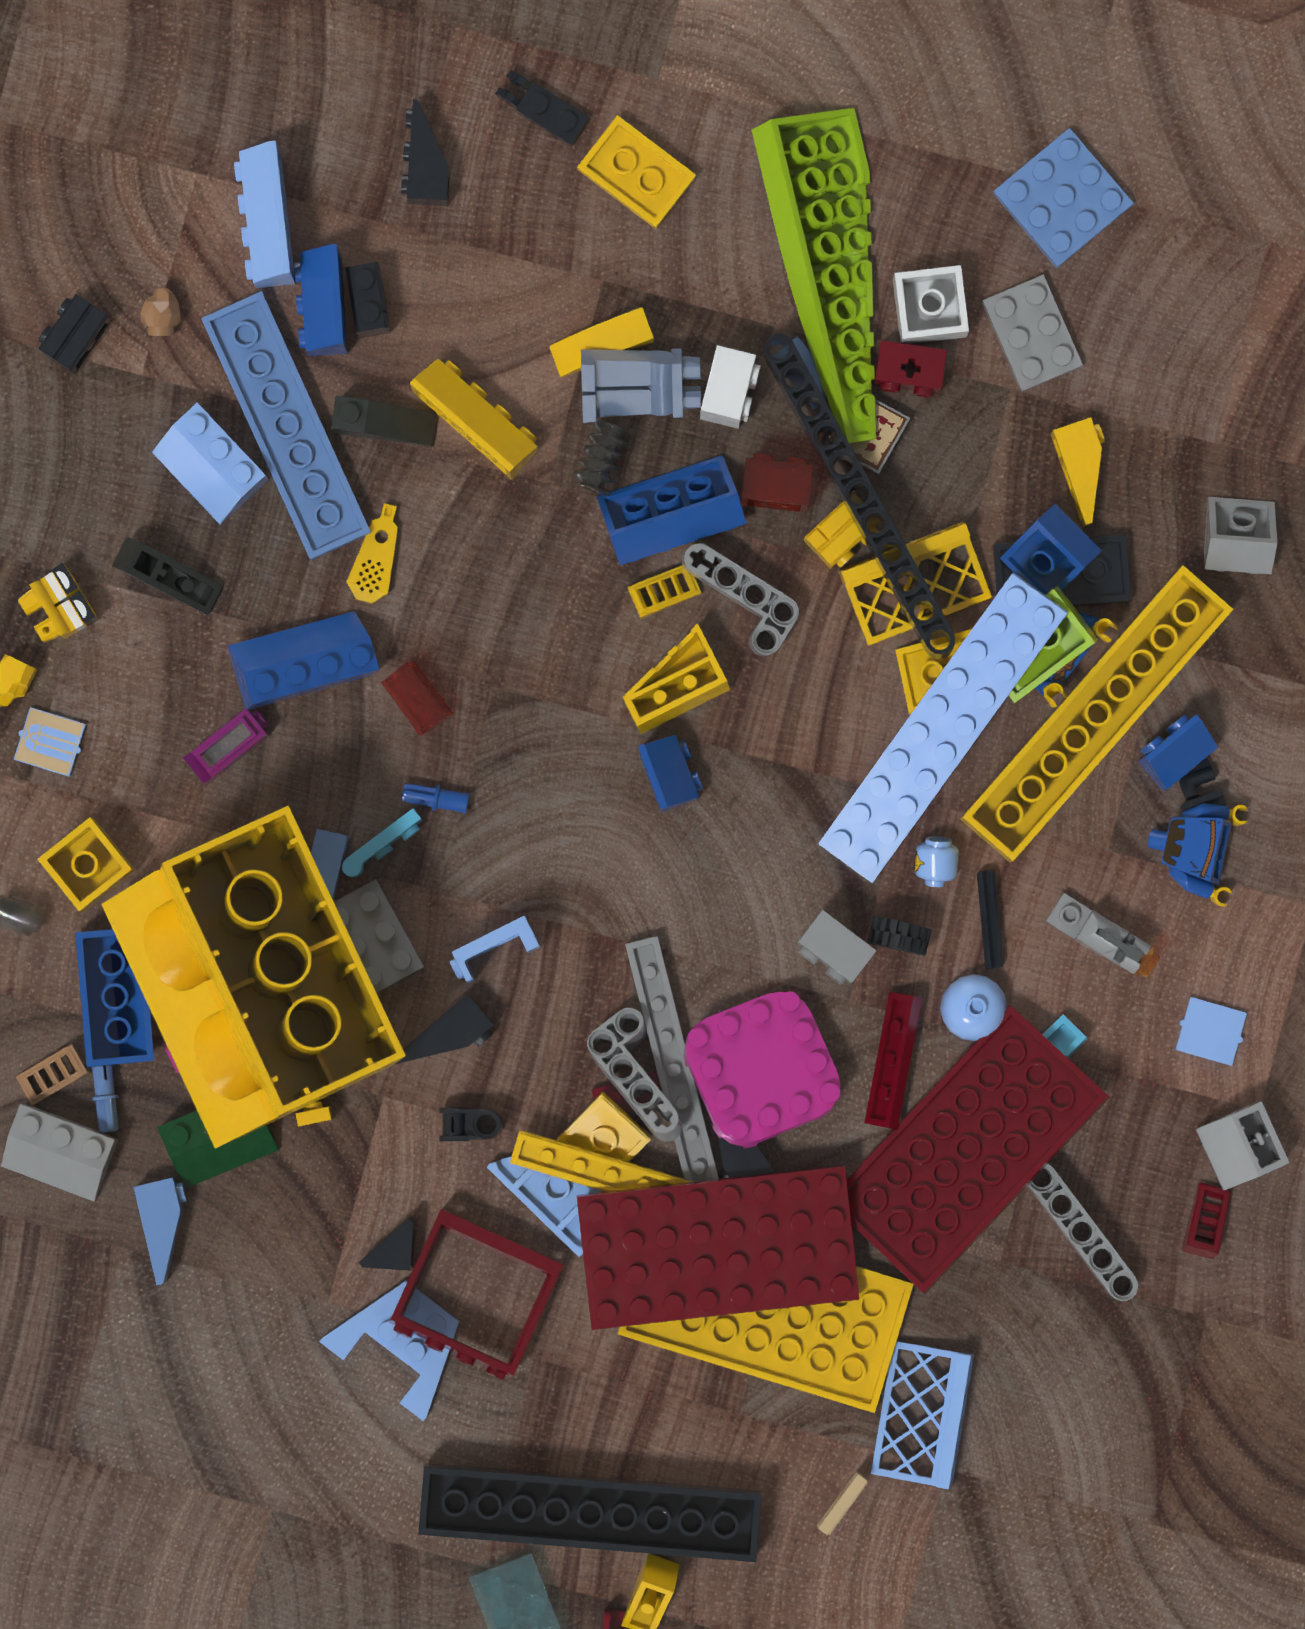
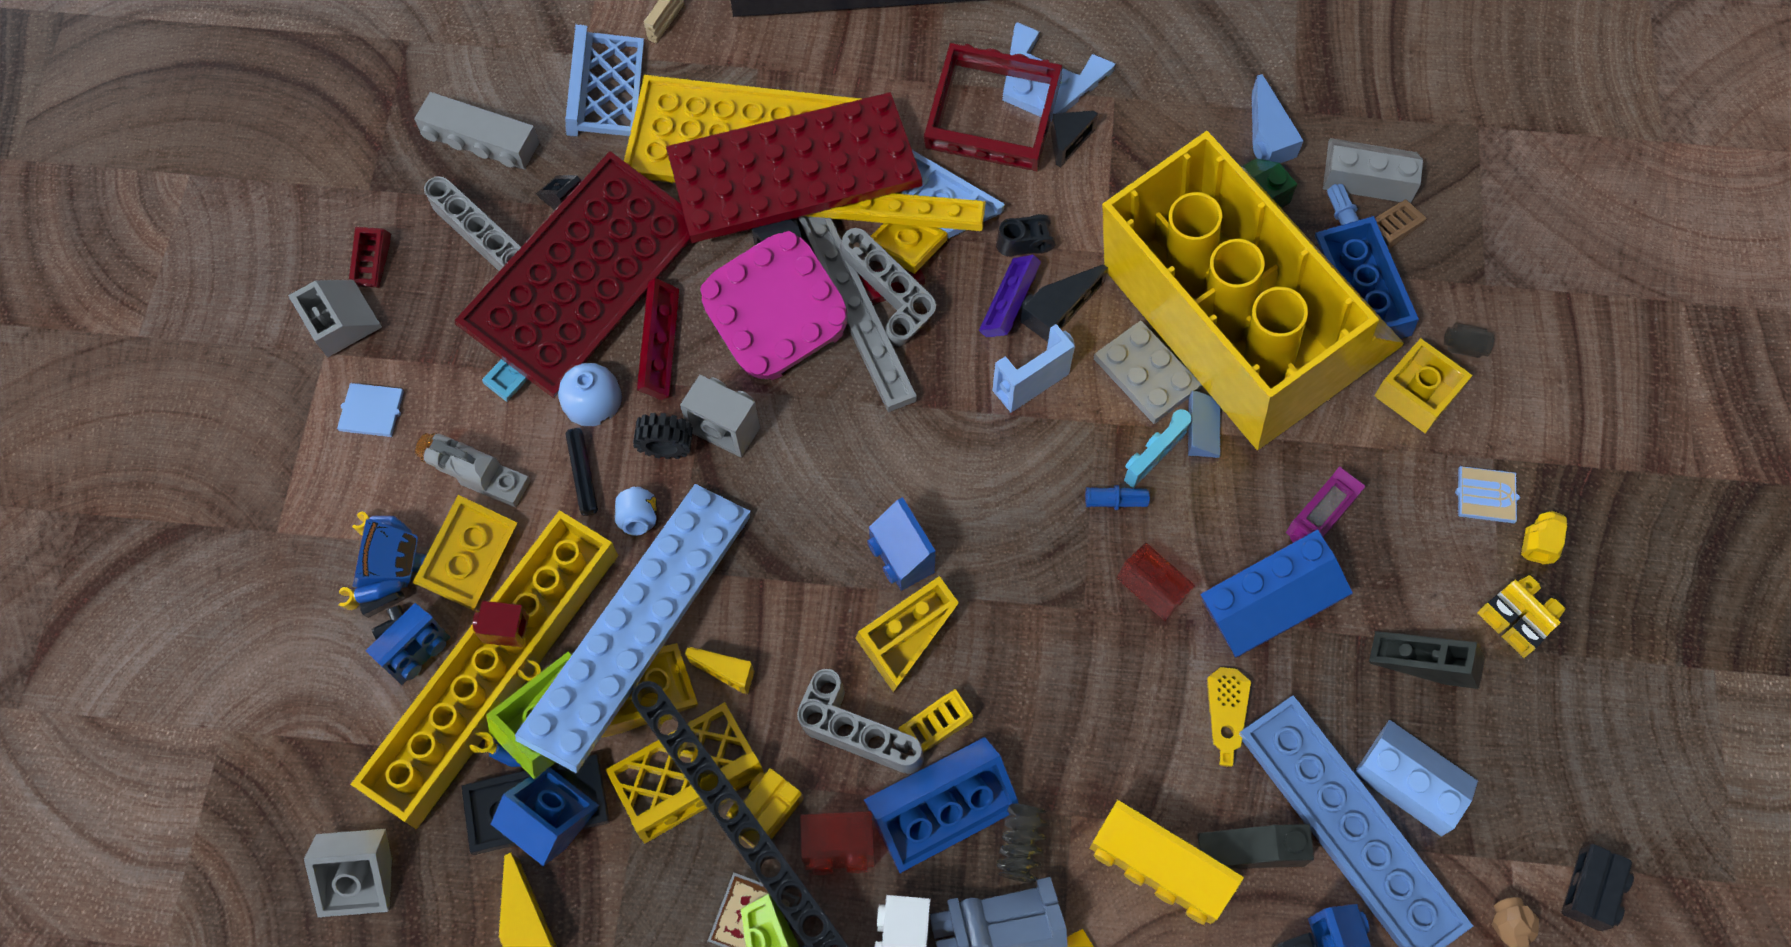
camera: 170 degrees right, 20 degrees down
(502, 1050) = (1010, 296): none -> dark purple plate
(859, 674) = (729, 670): none -> yellow slope
(985, 1267) = (558, 189): none -> black slope
(1075, 1367) = (477, 131): none -> light grey brick
(1078, 740) = (501, 623): none -> dark red brick
(1114, 841) = (465, 552): none -> yellow plate

